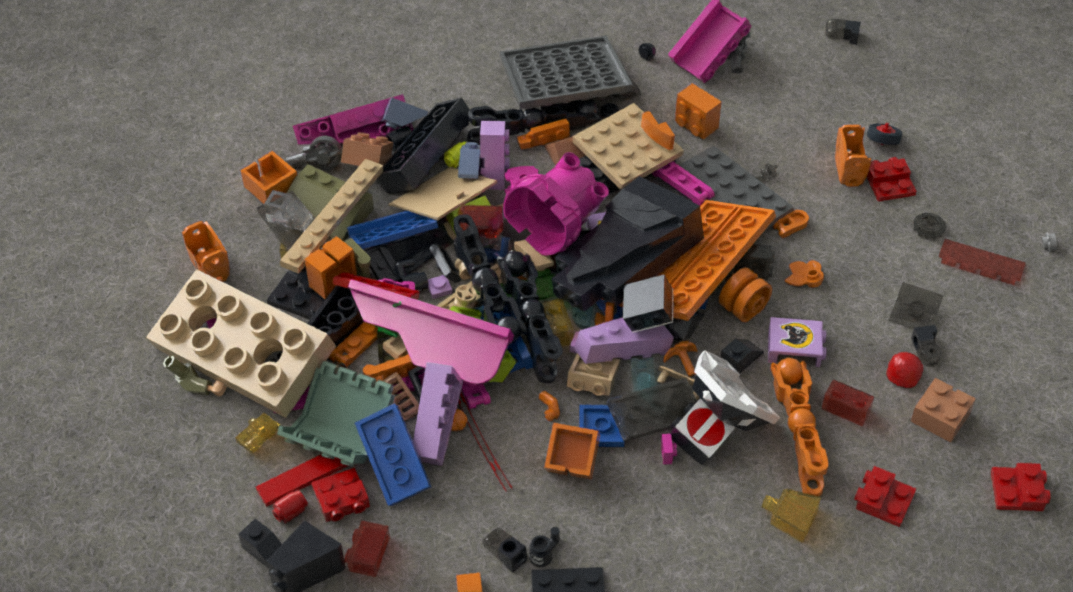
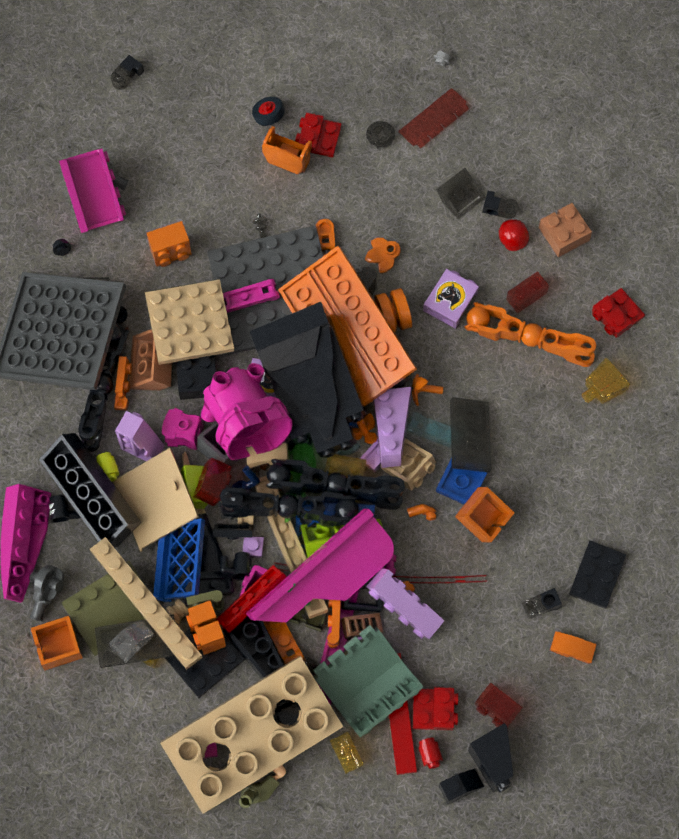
camera: 65 degrees left, 20 degrees up
(213, 257) = (127, 729): orange piece -> none
(362, 147) = (70, 544): nougat piece -> none
(392, 455) = (425, 652): blue plate -> none
(400, 113) = (42, 494): sand blue slope -> none
(465, 292) = (291, 525): tan wheel -> none
(469, 161) = (132, 460): sand blue slope -> none
(541, 548) = (557, 577): black piece -> none
(648, 303) = (388, 391): piece -> none
(659, 133) = (204, 289): orange slope -> none
(666, 371) = (432, 410): tan piece -> none
(668, 449) = (508, 443): dark pink plate -> none
(699, 431) = (506, 411): piece -> none
(727, 396) = (494, 373): white piece -> none
(740, 353) = (443, 345): black slope -> none
(1020, 487) = (651, 217): red plate -> none

